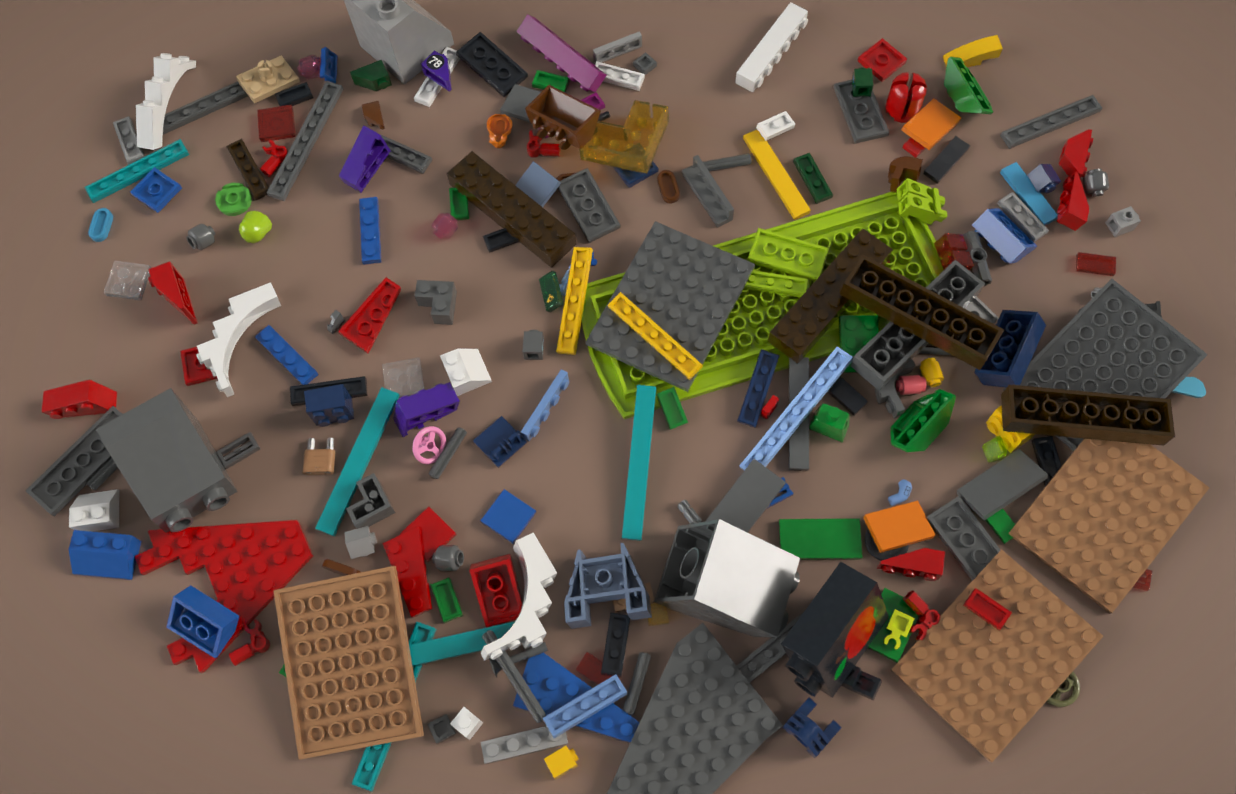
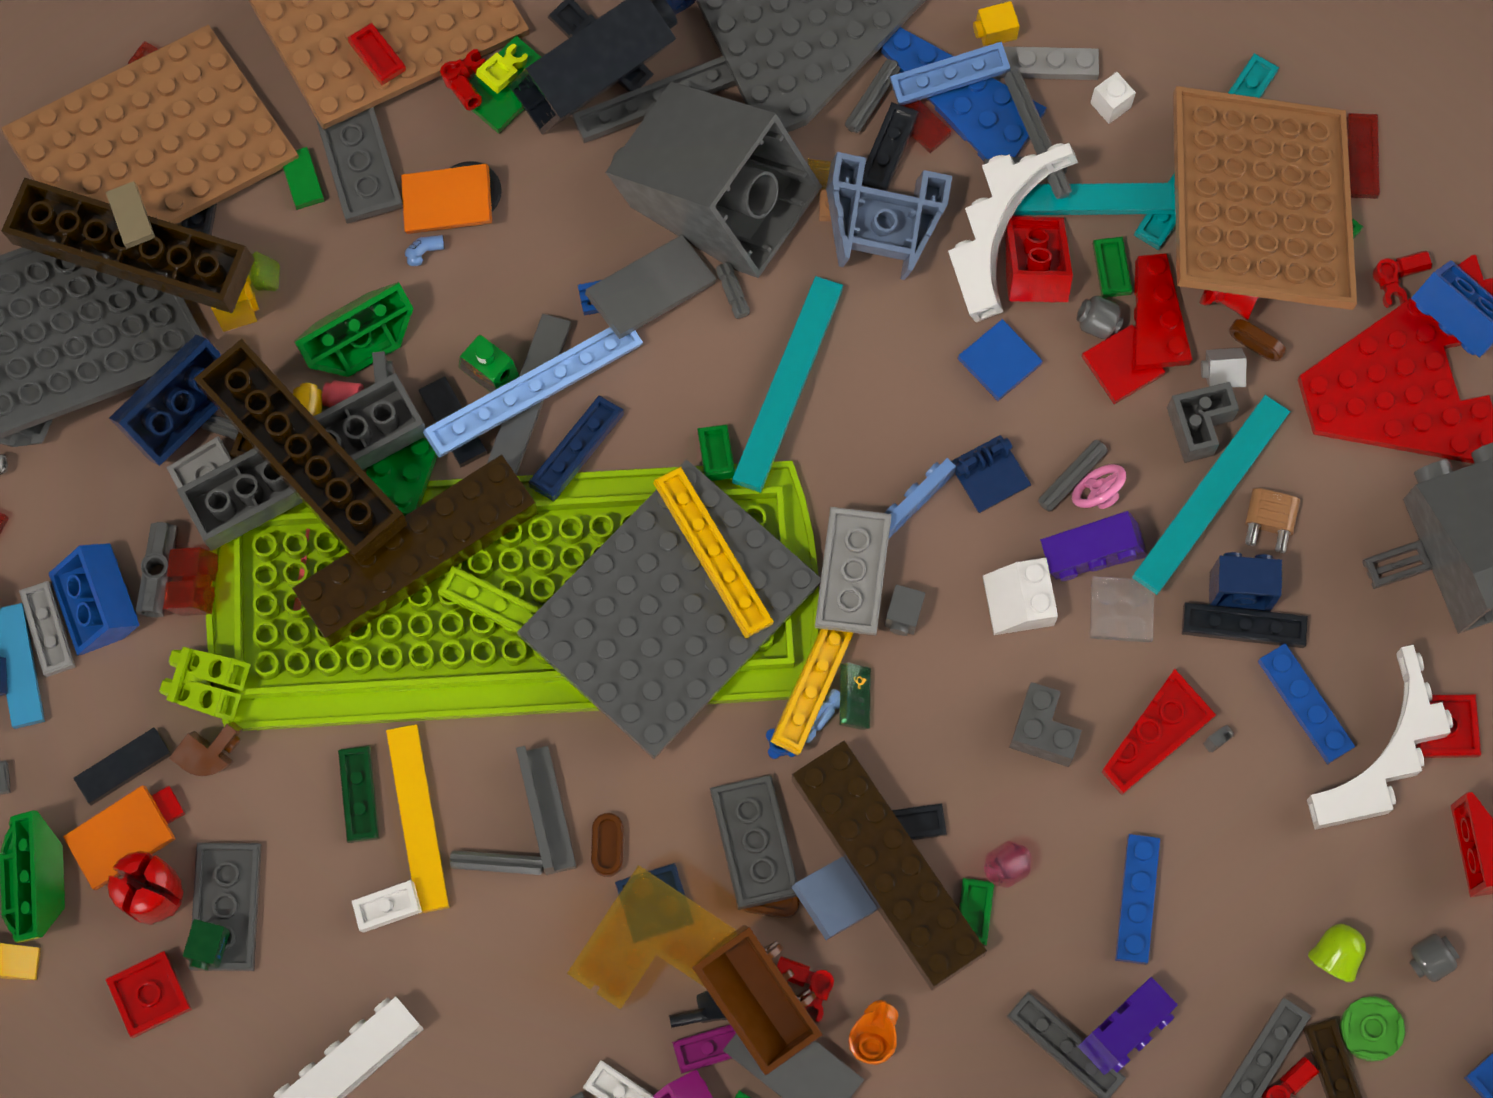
camera: 170 degrees left, 5 degrees up
(283, 731) = (1363, 155): none -> clear red tile
(441, 729) = (1148, 106): dark grey tile -> none
(568, 352) = (853, 571): none -> light grey tile
(770, 407) = (568, 416): red tile -> none
(788, 254) = (455, 646): lime tile -> none
(821, 538) = (561, 216): green tile -> none
(922, 562) = (440, 148): red slope -> none
(1001, 484) = (281, 216): dark grey piece -> none
(1094, 423) = (130, 214): none -> dark tan tile

